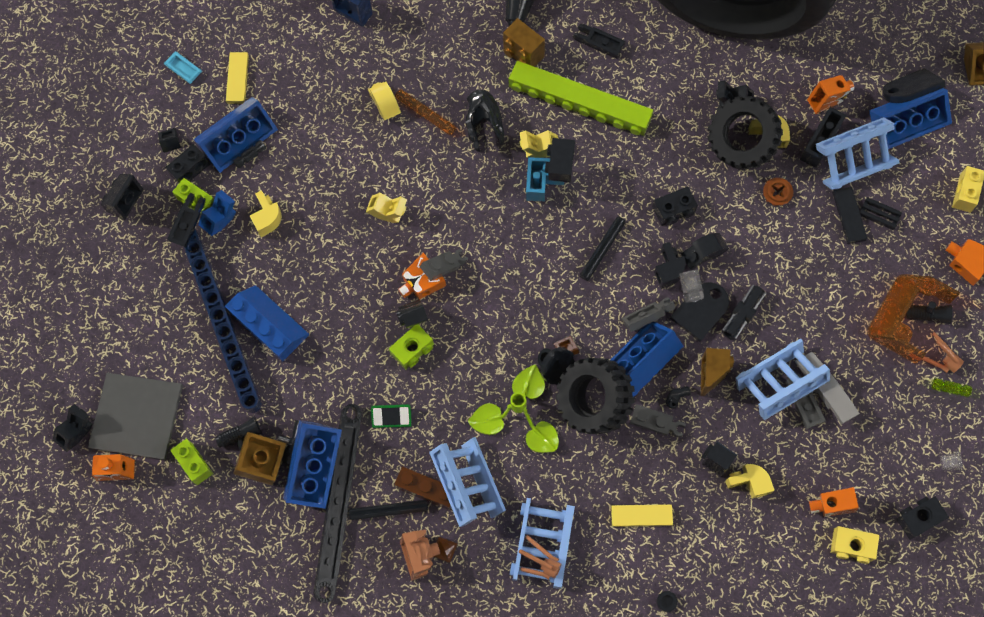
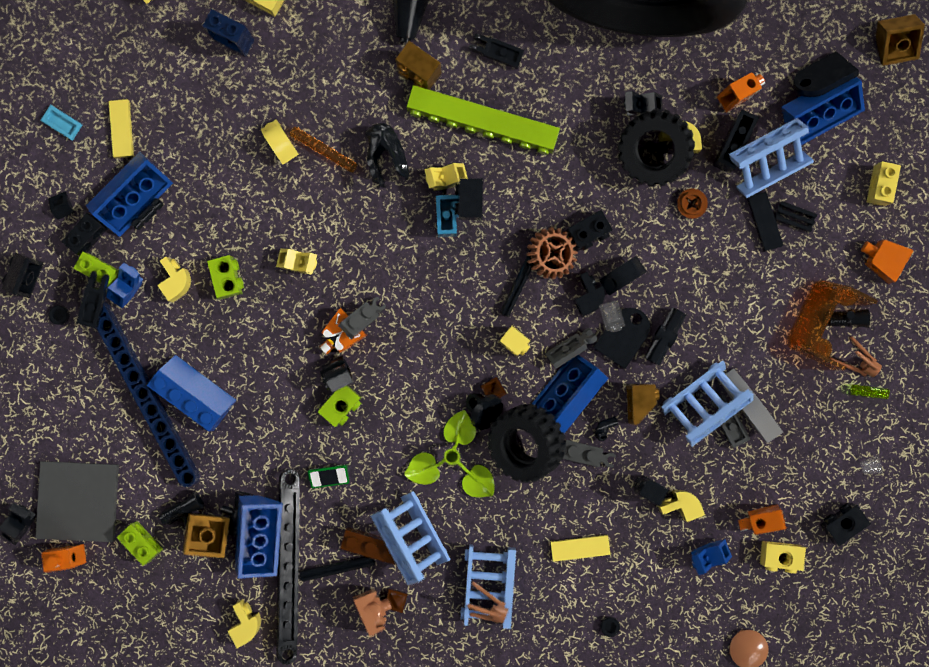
camera: 10 degrees left, 15 degrees up
(149, 238) = (59, 315): none -> black tile
(287, 561) = (248, 626): none -> light yellow brick
(311, 217) = (220, 279): none -> lime brick
(592, 300) = (515, 342): none -> light yellow brick
(642, 236) = (541, 242): none -> nougat gear
(778, 535) = (710, 555): none -> blue brick

